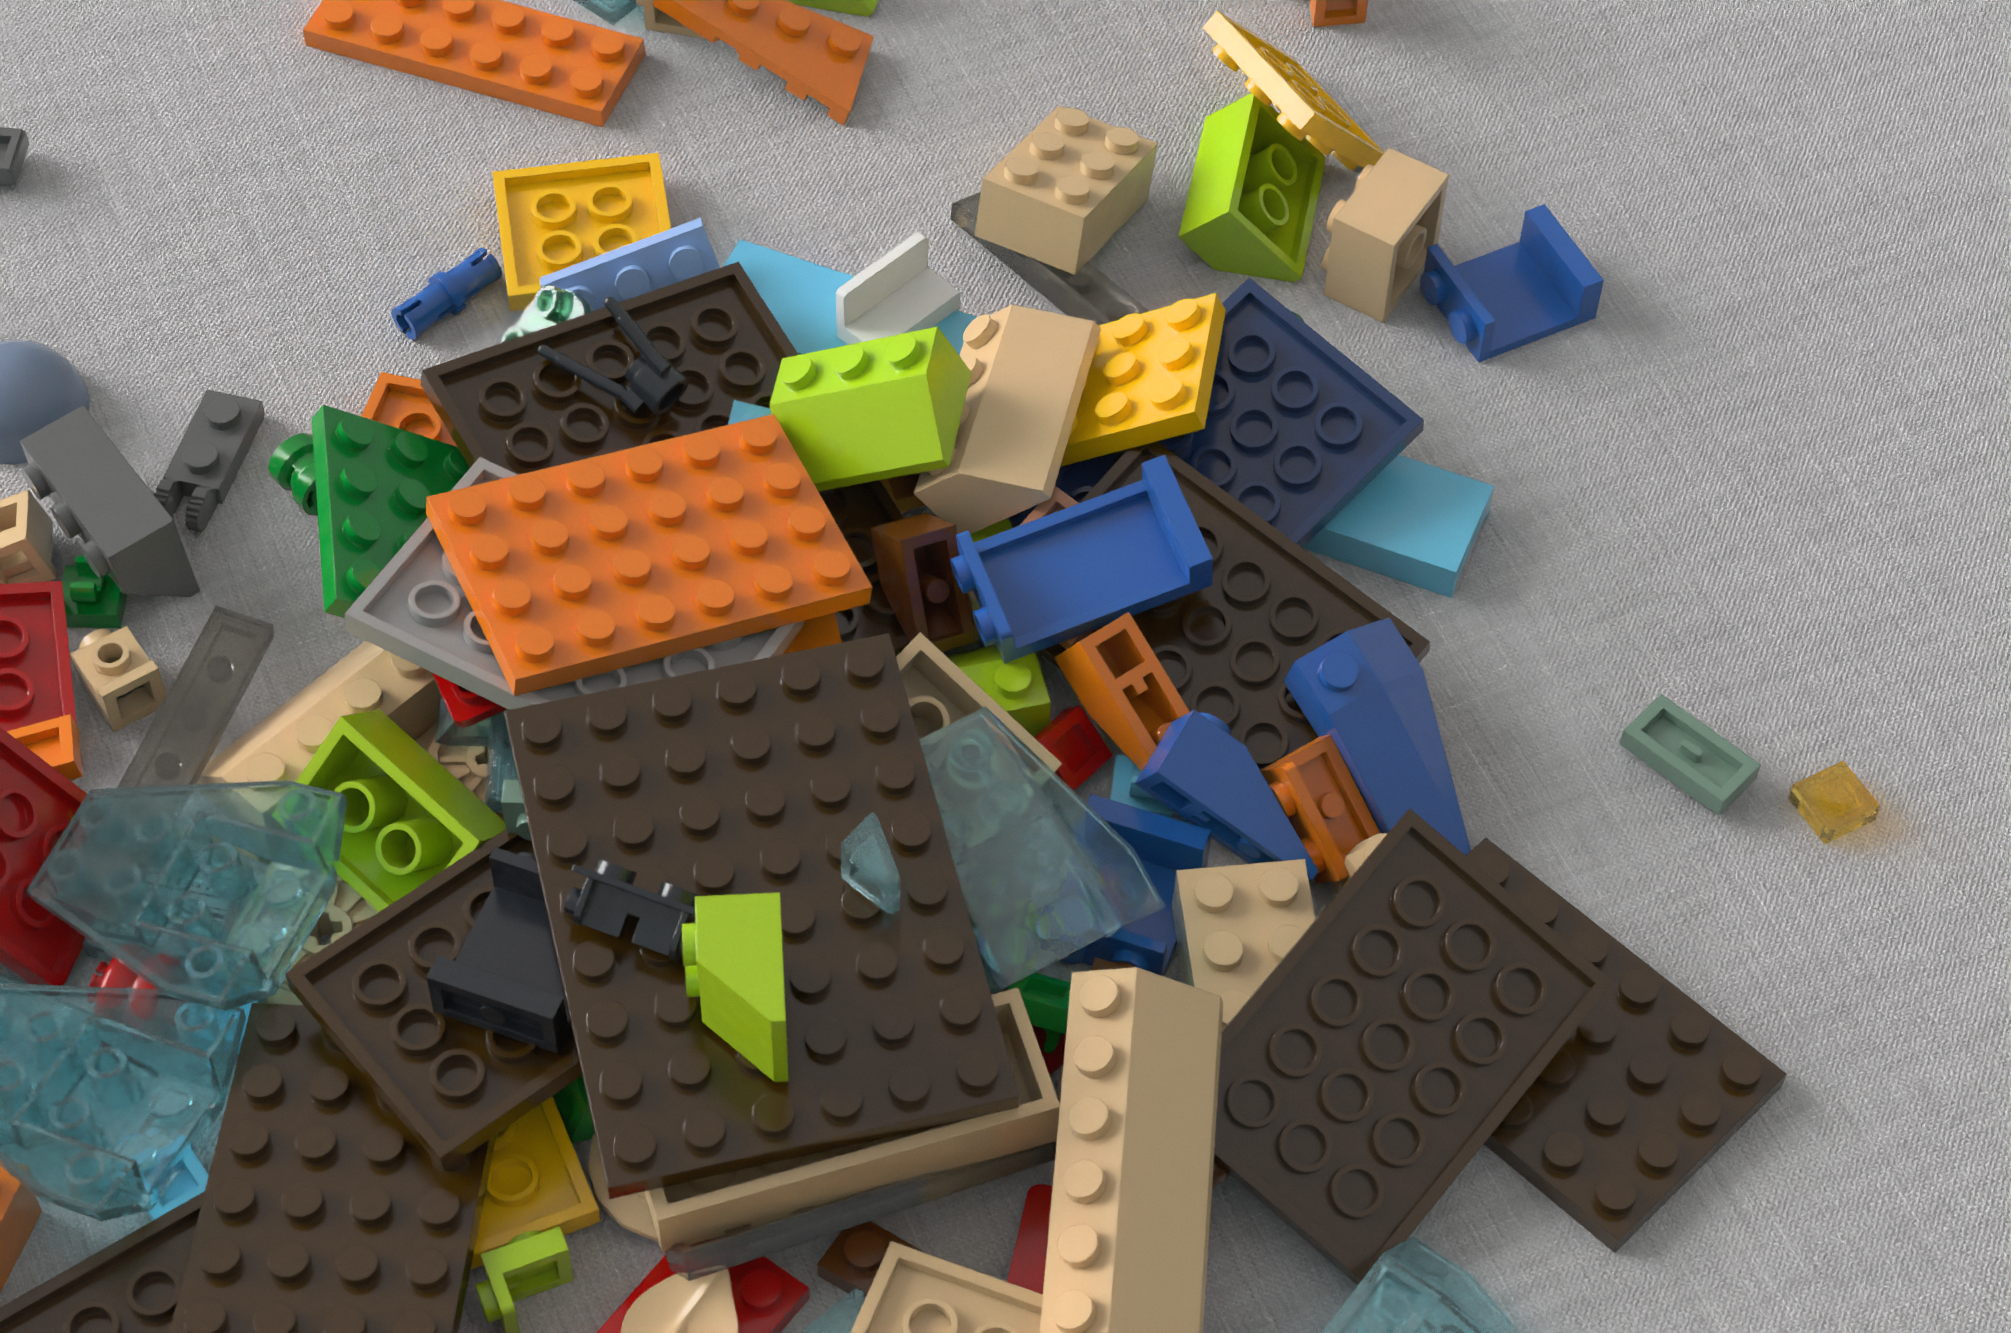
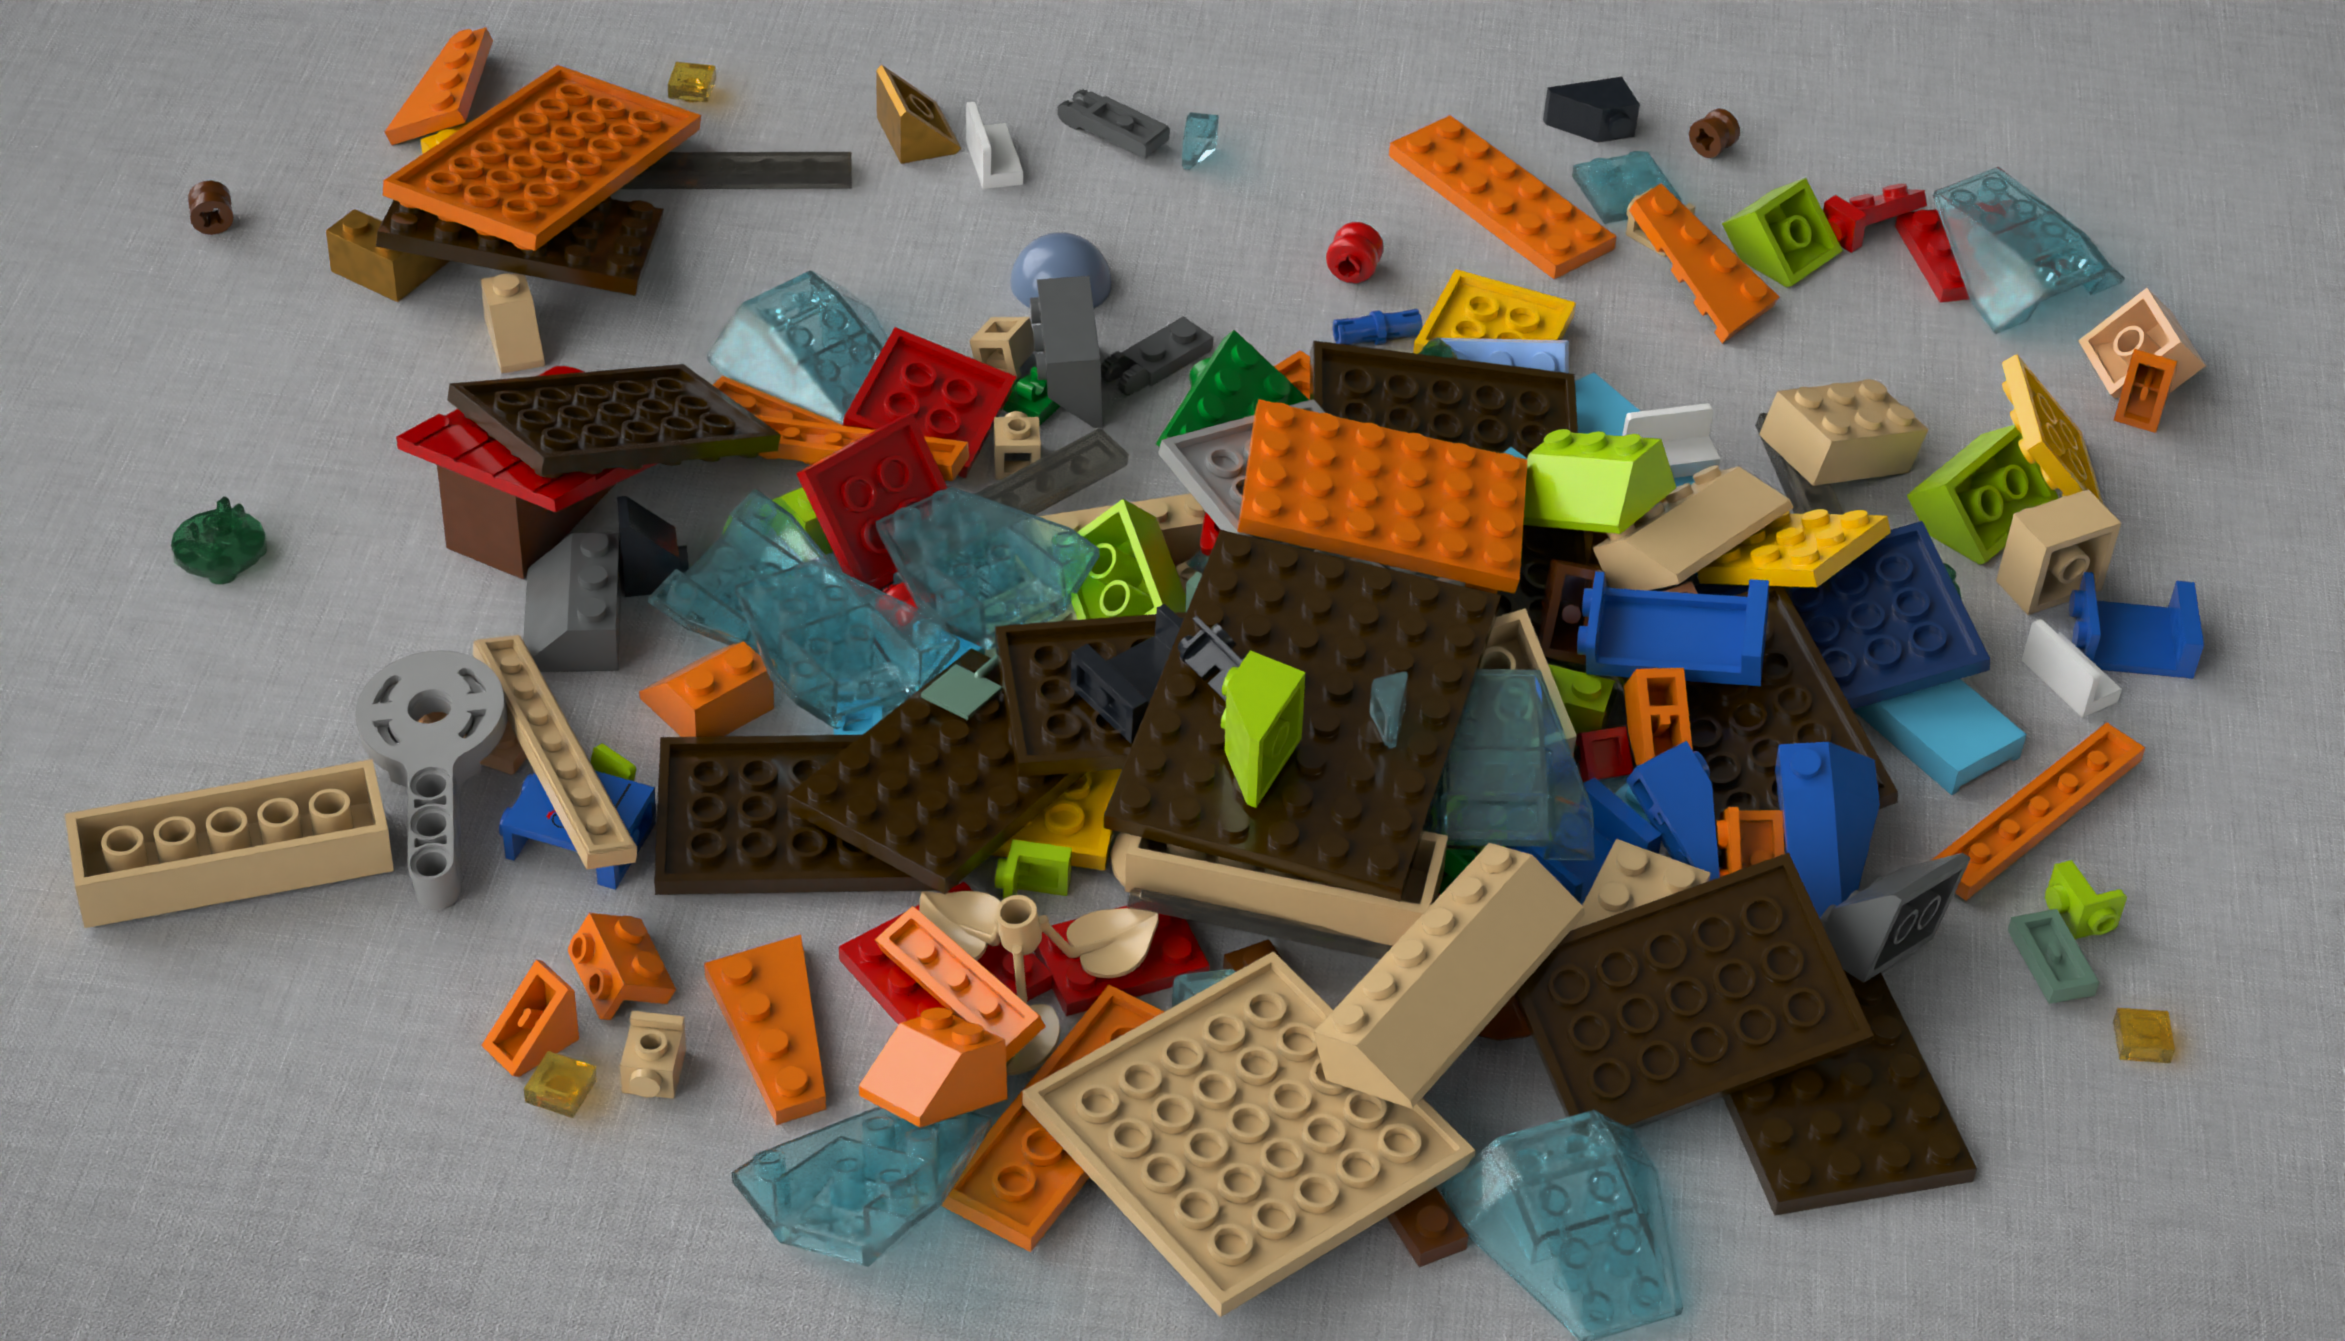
camera: 30 degrees right, 10 degrees down
(70, 128) = (1199, 138): none -> clear light blue slope
(294, 1075) = (963, 690): none -> sand green piece
(359, 203) = (1355, 252): none -> red piece
(651, 375) = (1462, 406): black plant -> none
(1476, 377) = (2068, 671): none -> white panel
(1518, 799) = (1892, 915): none -> dark grey slope
(1557, 578) = (2043, 806): none -> orange plate
(1669, 670) = (2080, 905): none -> lime bracket

